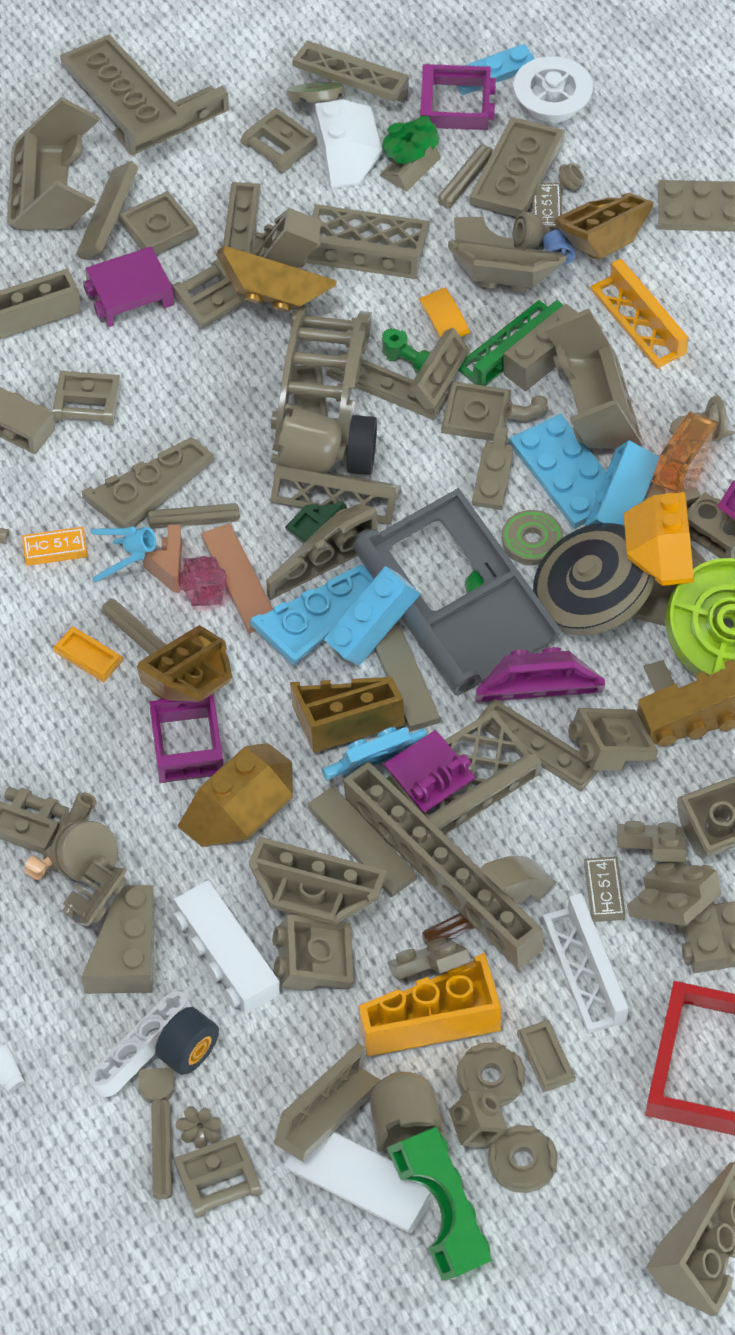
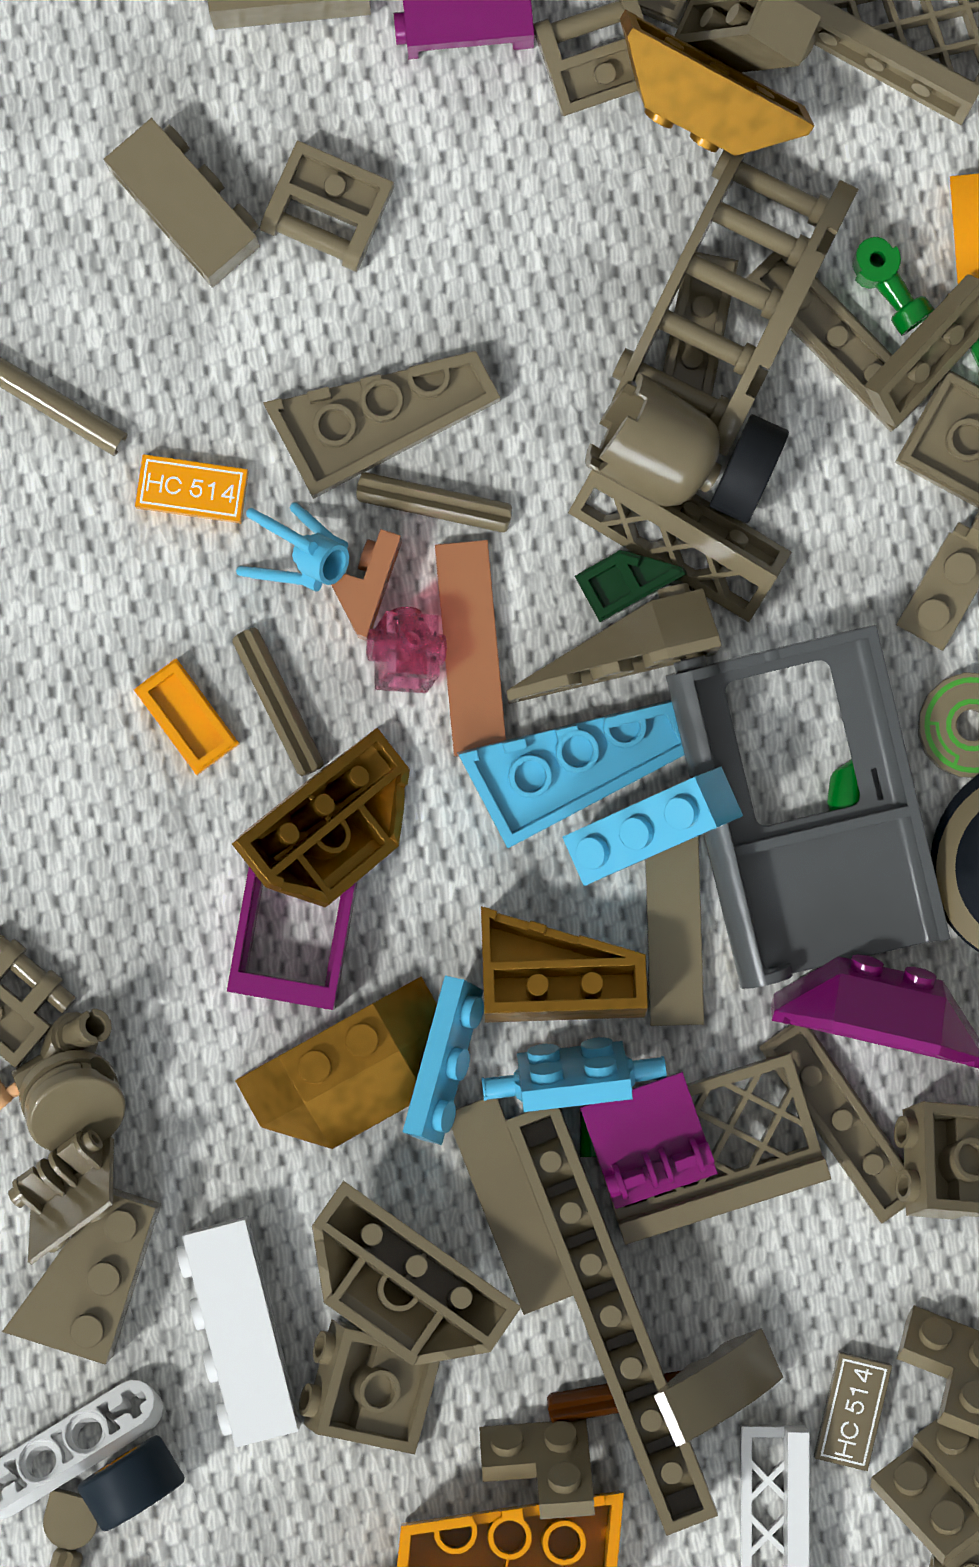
camera: 20 degrees right, 30 degrees up
(297, 771) = (444, 1060): none -> medium azure plate

